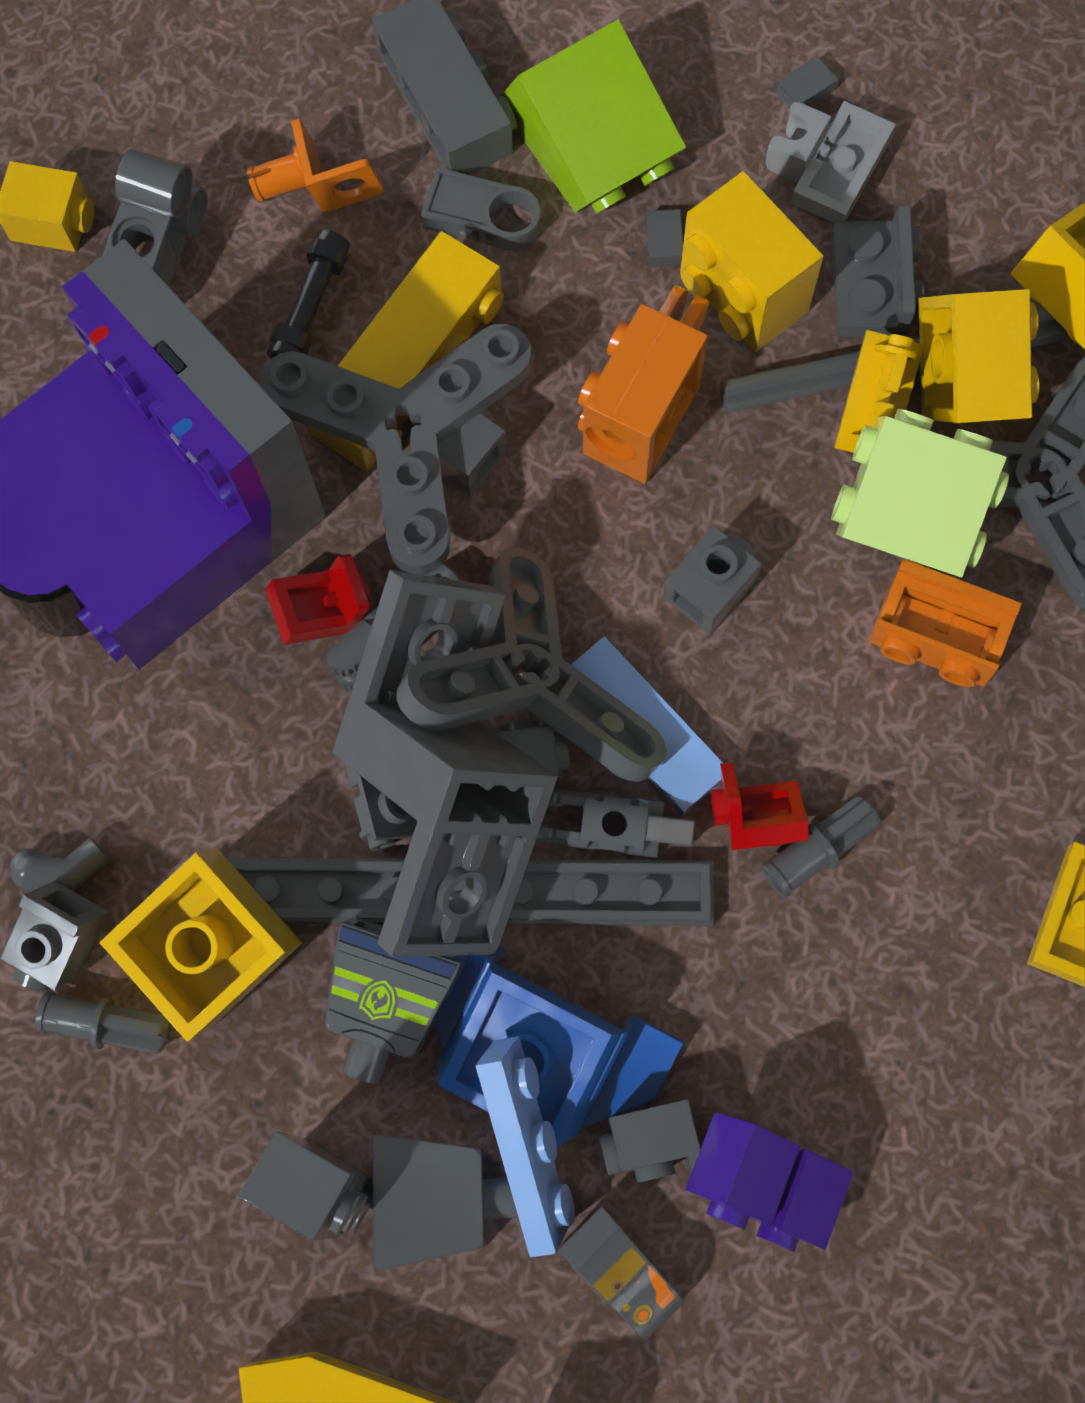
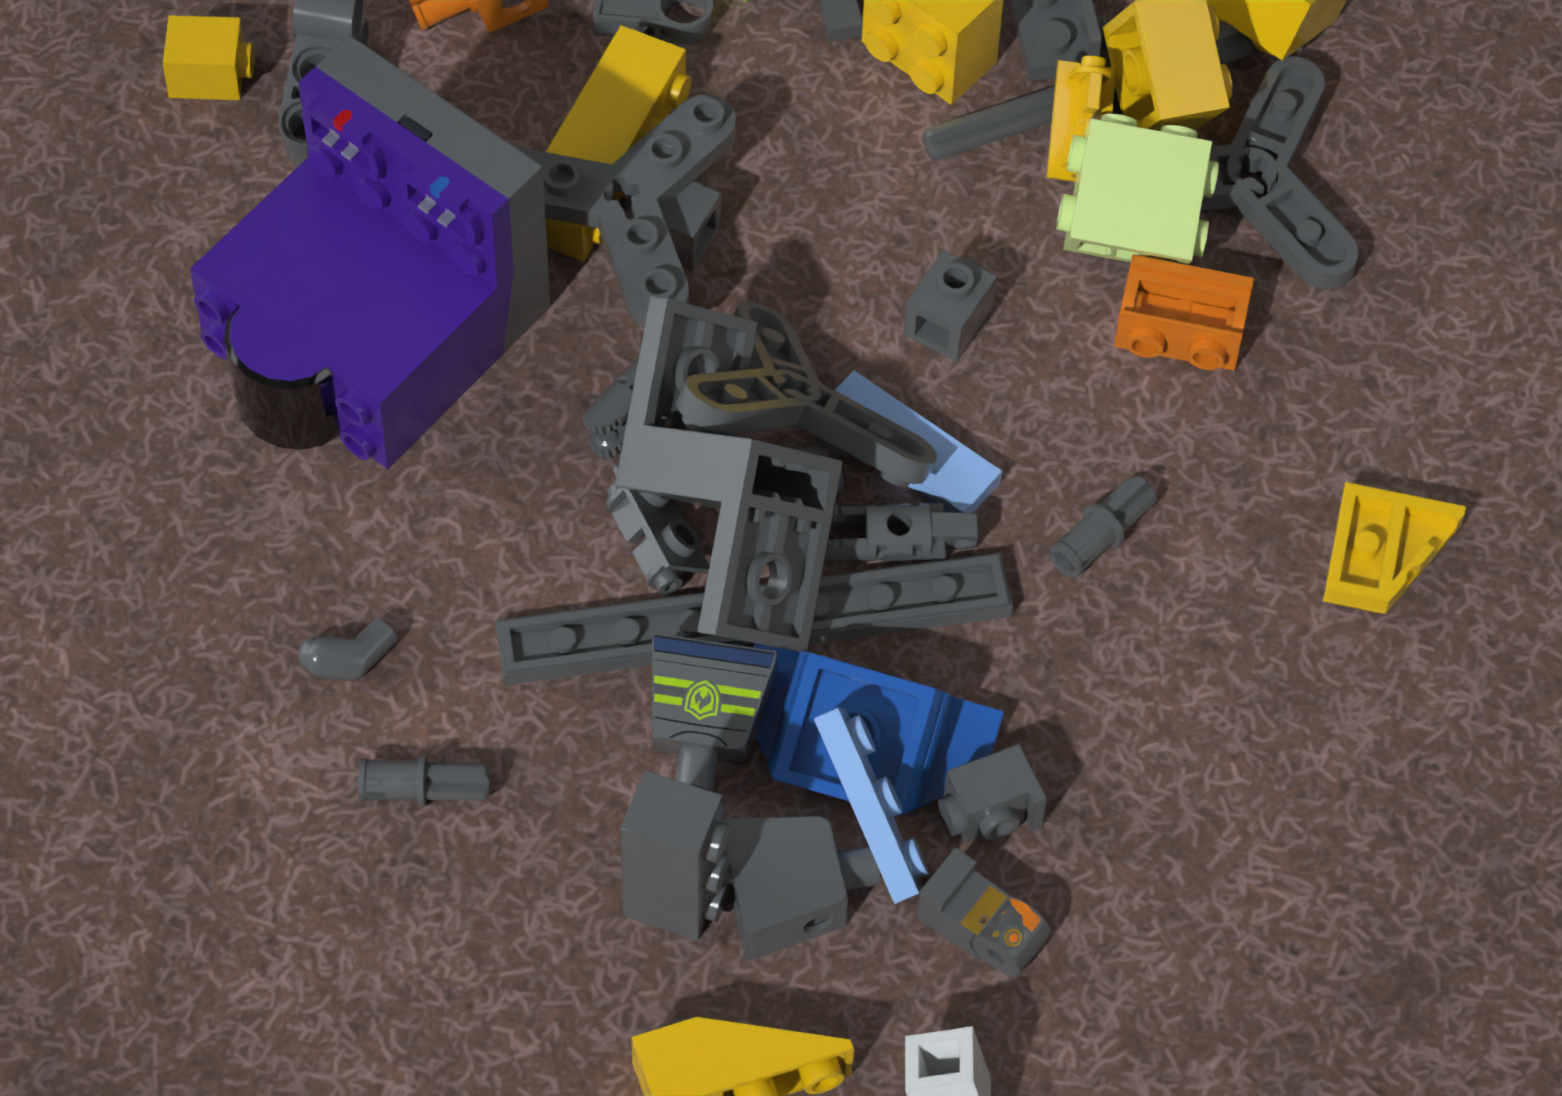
camera: 15 degrees left, 15 degrees down
(52, 937) = (381, 697): dark grey brick -> none
(200, 943) = (516, 678): yellow brick -> none
(319, 602) = (565, 377): red bracket -> none
(325, 257) = (501, 73): black bar -> none
(644, 386) = (850, 140): orange brick -> none
(759, 813) = (1036, 505): red bracket -> none
(768, 1180) = (1090, 802): dark purple piece -> none

